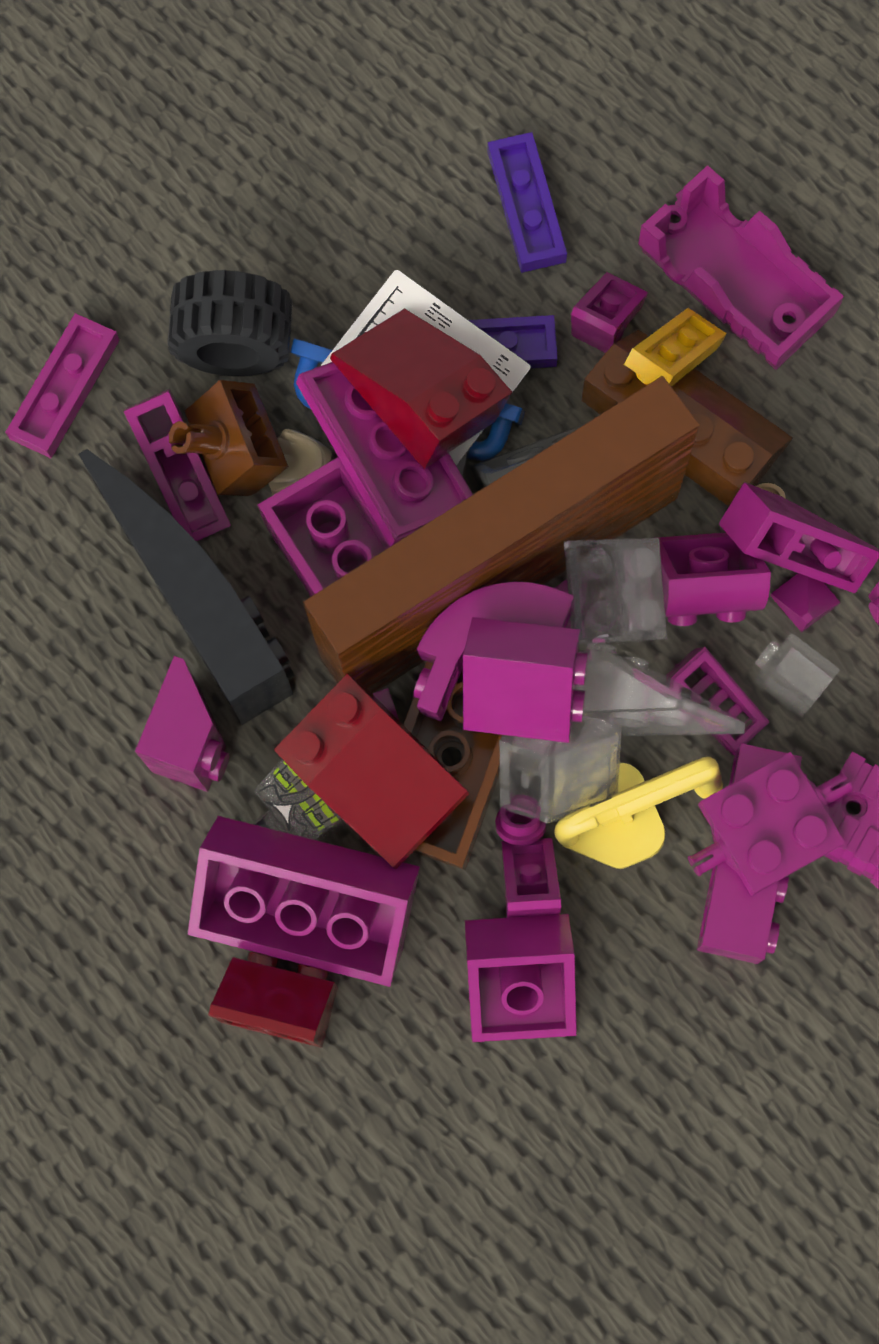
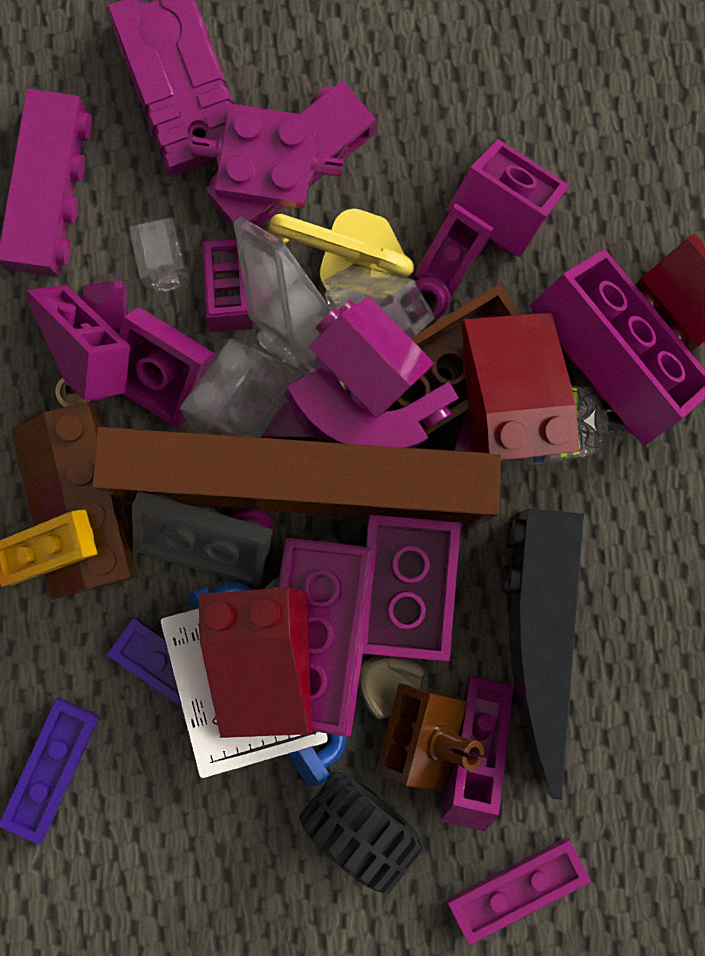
camera: 150 degrees left, 10 degrees up
(182, 734) = (622, 528): magenta slope -> none
(606, 311) = (62, 627): magenta slope -> none

